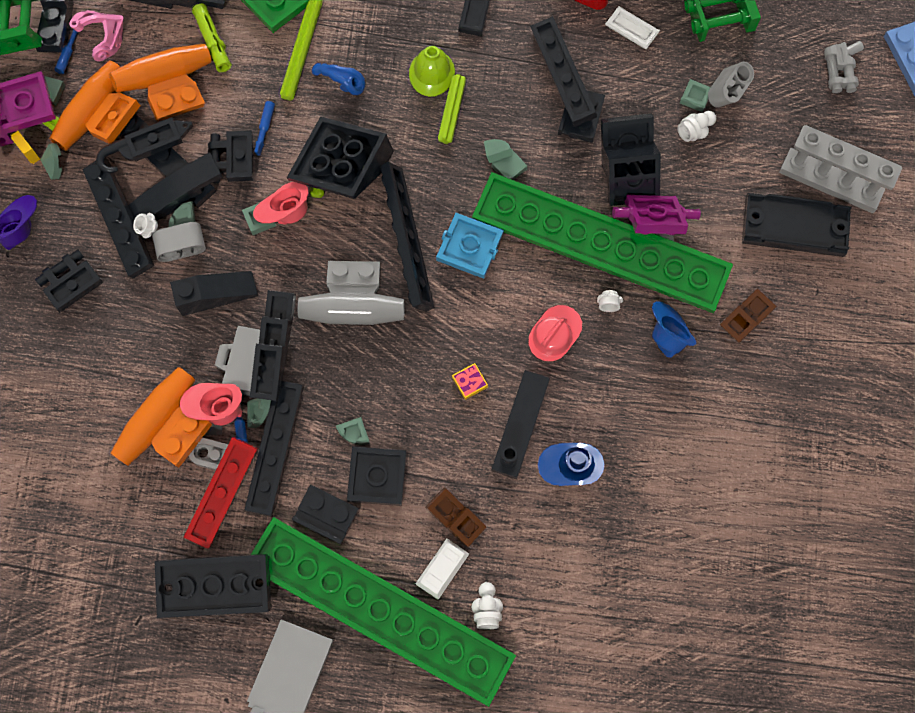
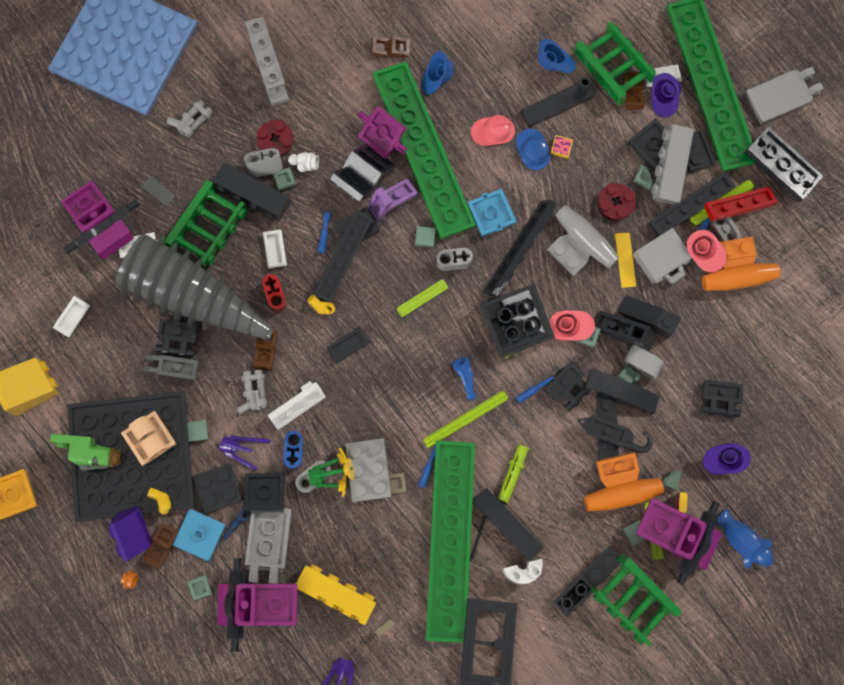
camera: 140 degrees left, 5 degrees up
(65, 54) = (613, 542): blue piece -> none
(111, 23) = (564, 538): bright pink helmet -> none
(118, 219) = (664, 408): black plate -> none
(145, 225) = (655, 386): white plate -> none
(166, 78) = (565, 466): orange plate -> none
(224, 253) = (625, 330): none -> black slope
(237, 512) = (702, 215): none -> lime axle
(257, 412) = (684, 231): sand green tile -> none
(272, 346) = (649, 248): black slope -> none
(303, 339) = (625, 260): none -> yellow sticker
(333, 463) = (672, 164): none -> light grey brick
(364, 364) = (622, 210): none -> dark red plate
(415, 541) = (665, 95): none -> dark purple piece
(431, 72) = (409, 332): lime hat -> none
(459, 167) = (450, 253): none -> light grey beam
(487, 608) = (660, 36): white piece -> none
(496, 353) = (533, 149): none -> blue piece
(496, 494) = (607, 79): none -> green fence
(497, 150) = (424, 249): sand green tile -> none
(532, 18) = (321, 306): none -> yellow arm
(577, 165) = (386, 200): none -> medium lavender bracket
(604, 83) = (324, 233): none -> blue piece
(609, 301) = (450, 117): white plate -> none
(710, 52) = (251, 191): none -> black brick
(752, 109) = (279, 129): none -> dark red plate
(796, 224) = (313, 66): black piece -> none

